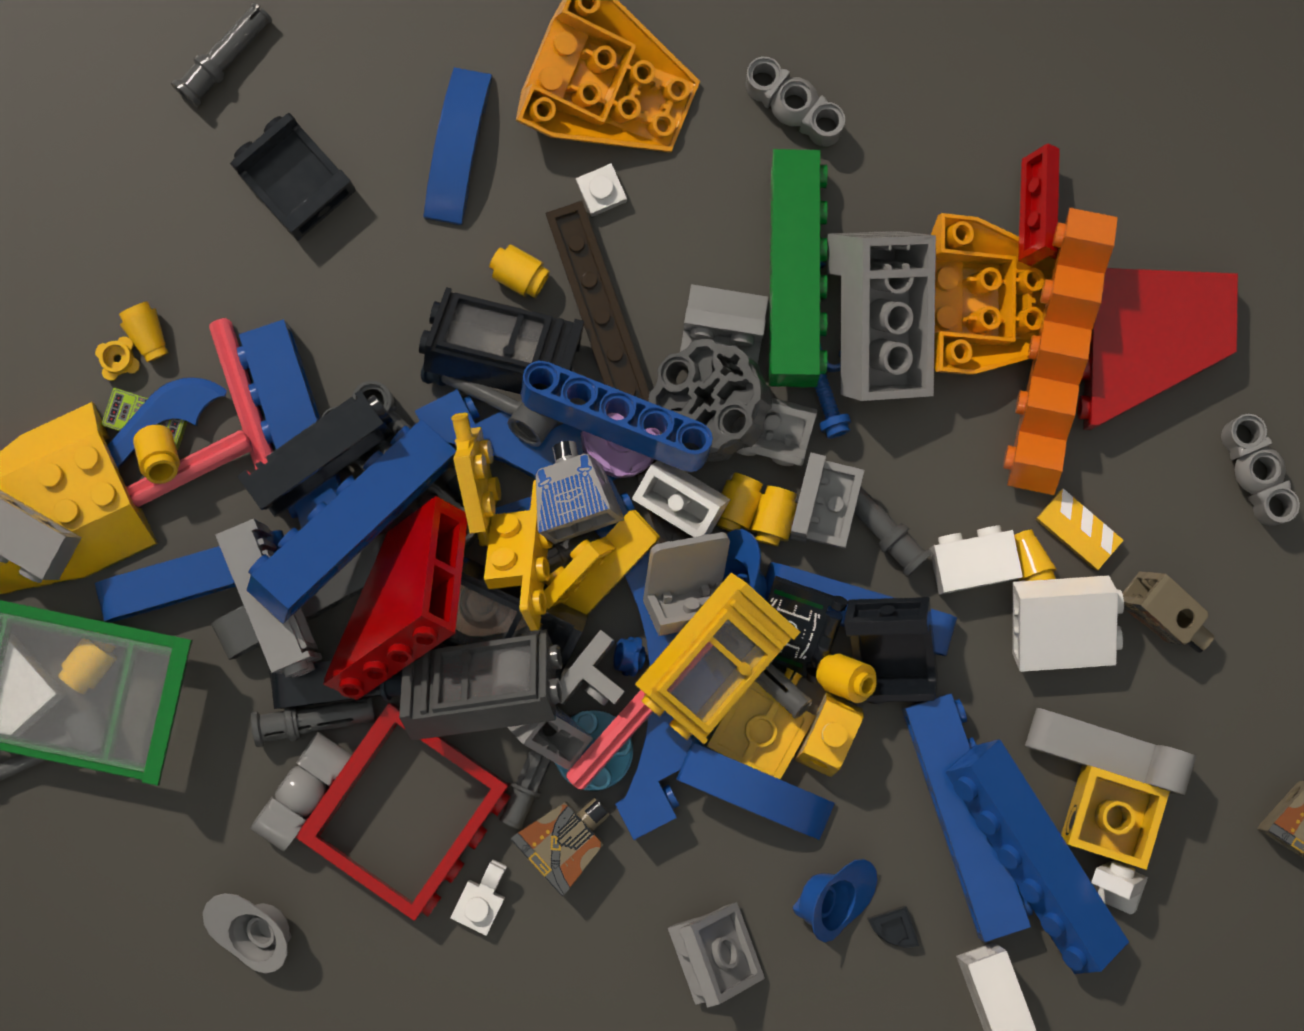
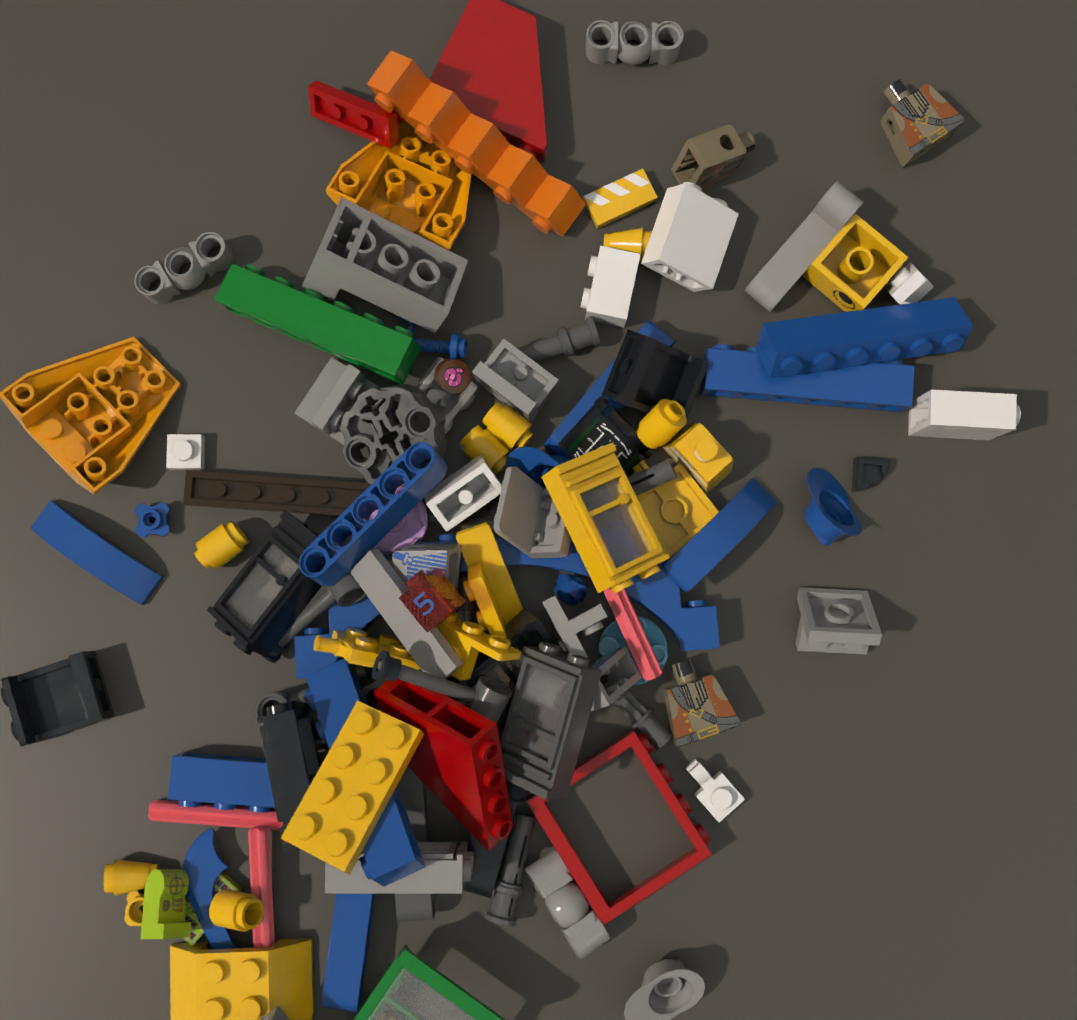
camera: 70 degrees left, 0 degrees up
(132, 380) = (165, 905): none -> lime leg
(333, 516) = (352, 787): none -> yellow plate
(476, 614) = (486, 697): none -> dark grey piece
(512, 199) = (160, 526): none -> blue plate
(524, 495) = (383, 589): none -> light grey tile
(554, 513) = (431, 598): none -> clear red brick
(801, 433) = (452, 376): none -> reddish brown tile

